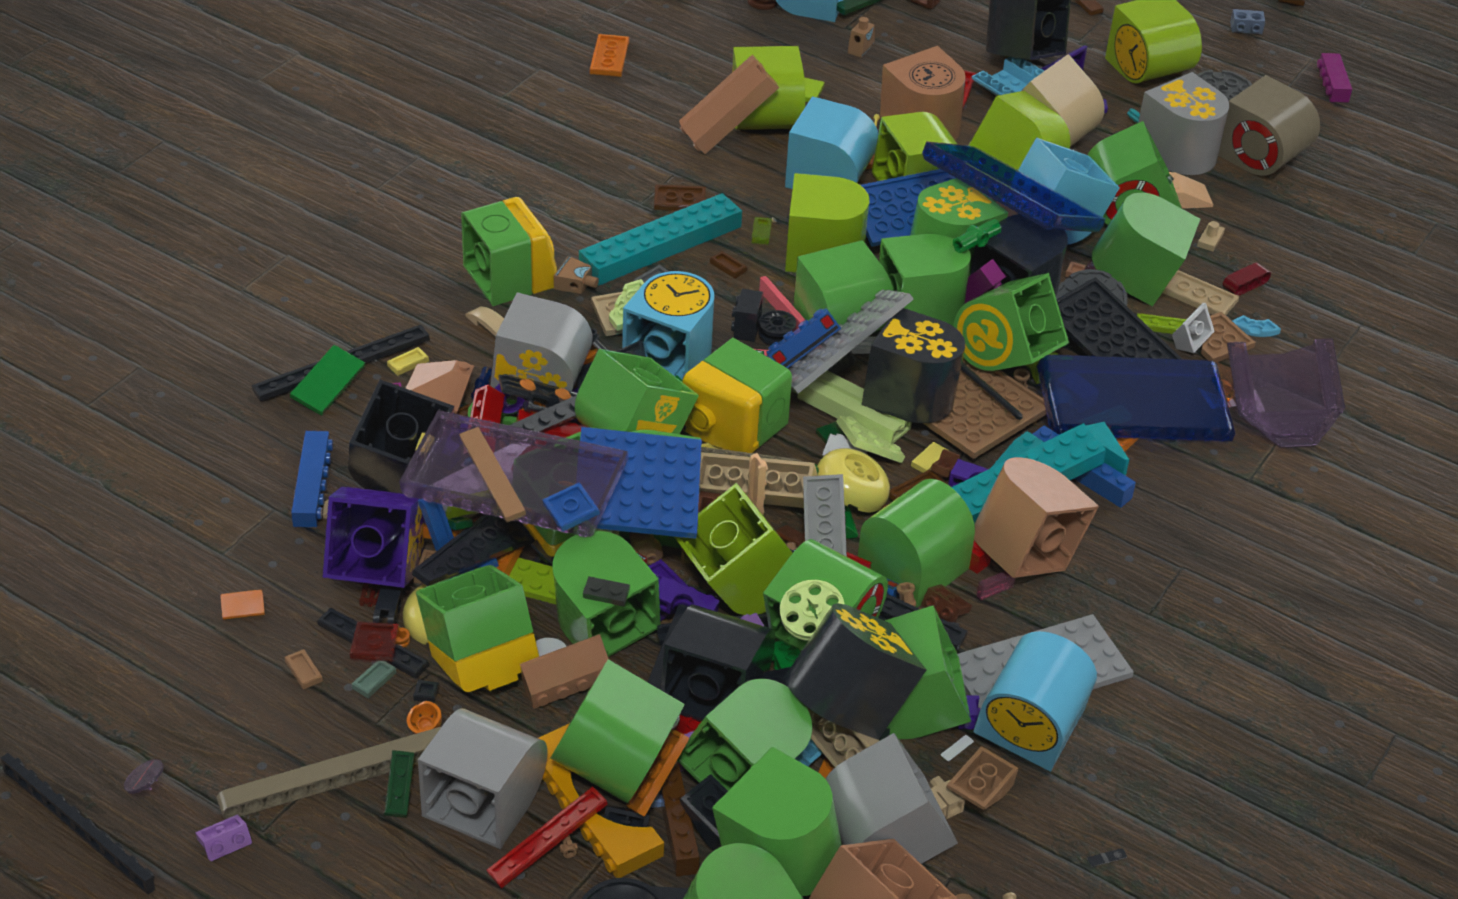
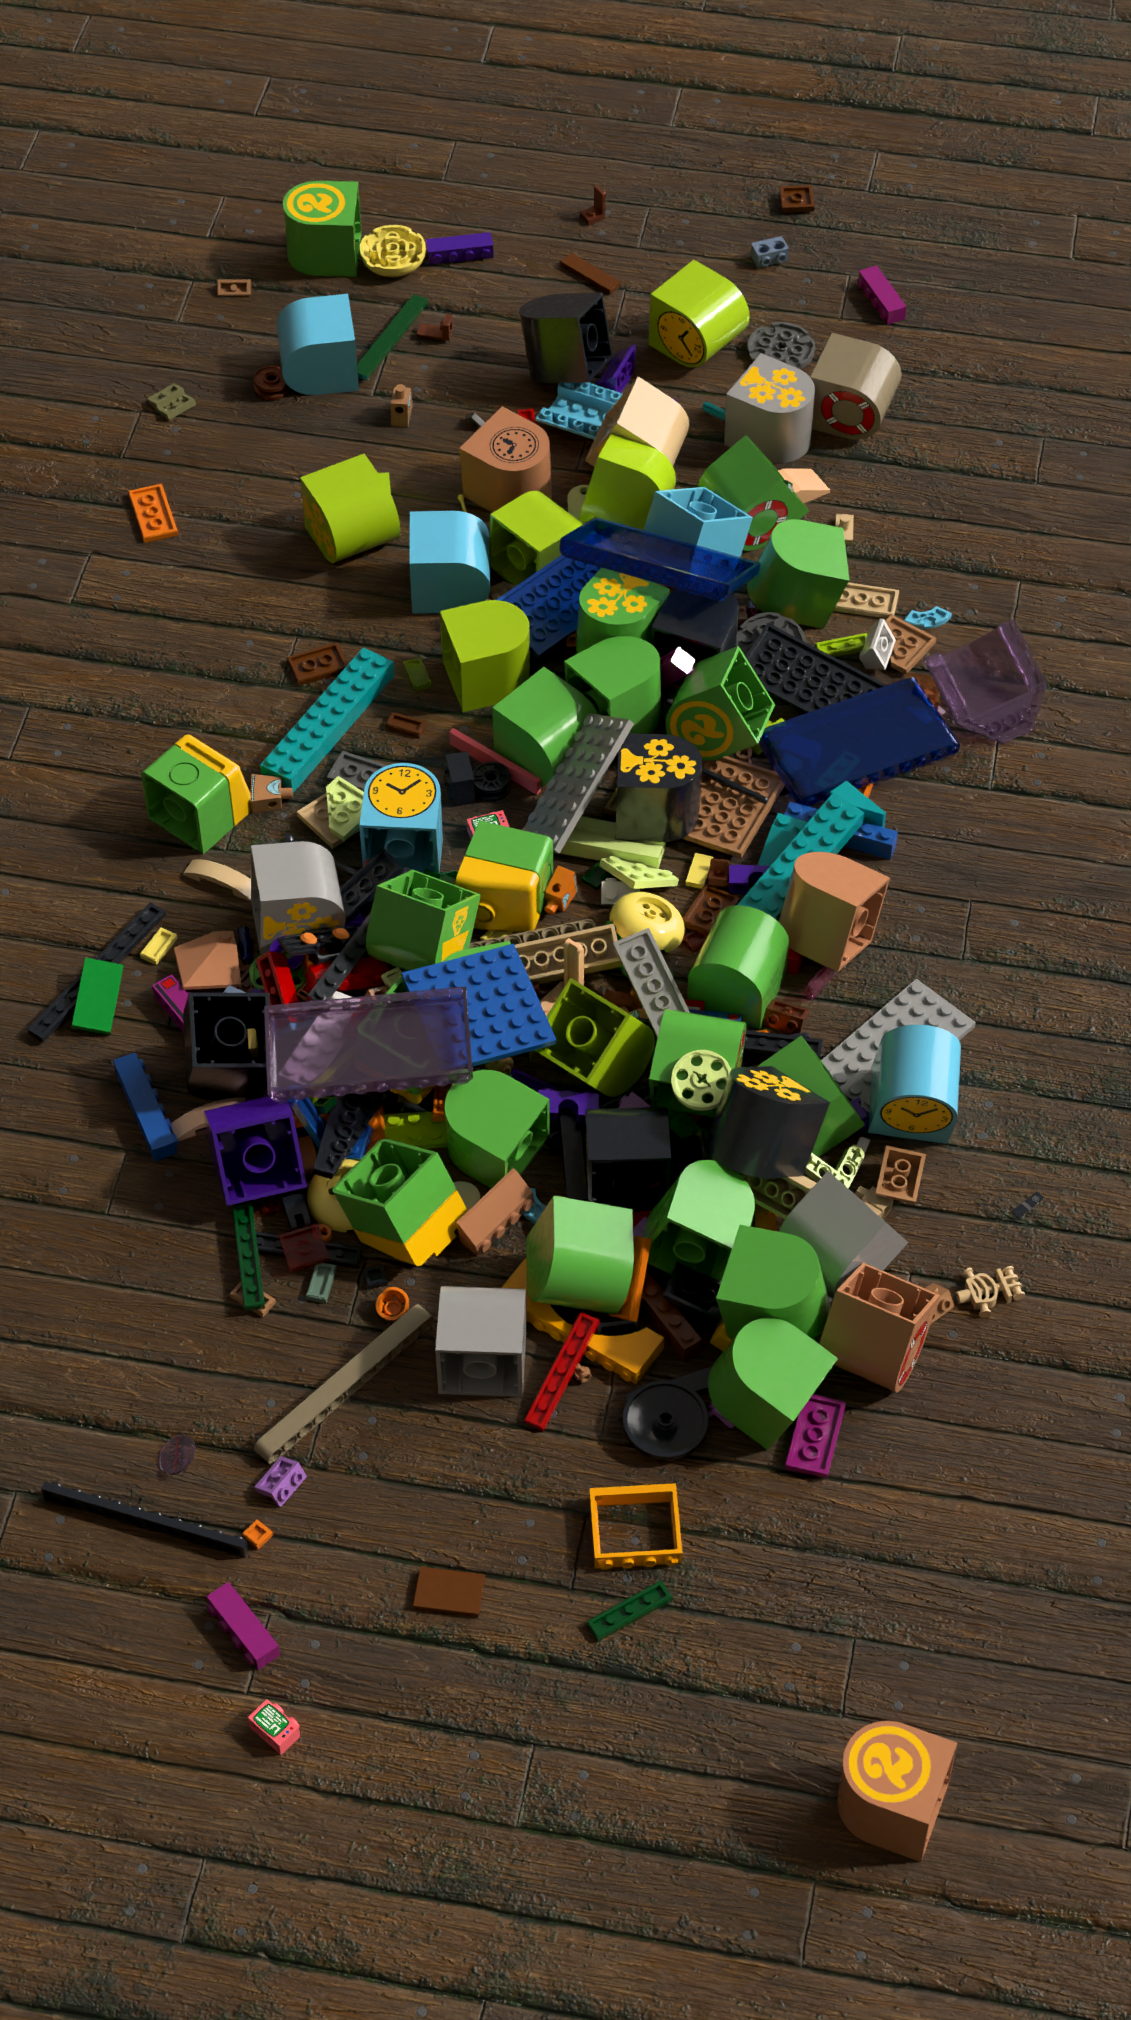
camera: 20 degrees left, 10 degrees up
(171, 877) = (257, 1534): none -> orange tile
(242, 604) = (159, 1257): orange slope -> none
(319, 631) = (248, 1256): none -> dark green tile
(399, 784) = (406, 1373): dark green tile -> none
(492, 474) = (353, 1054): medium nougat tile -> none
(571, 507) = (443, 1061): blue tile -> none
(606, 591) = (510, 1128): pearl dark grey plate -> none
(728, 104) = (322, 544): nougat panel -> none
(788, 429) = (560, 890): none -> orange torso
(804, 339) = (533, 792): blue brick -> none
(906, 592) = (751, 1023): medium nougat bush -> none
(923, 759) = (838, 1172): none -> yellowish green beam
(977, 236) = (654, 628): green piece -> none
(1246, 279) = (898, 568): dark red beam -> none

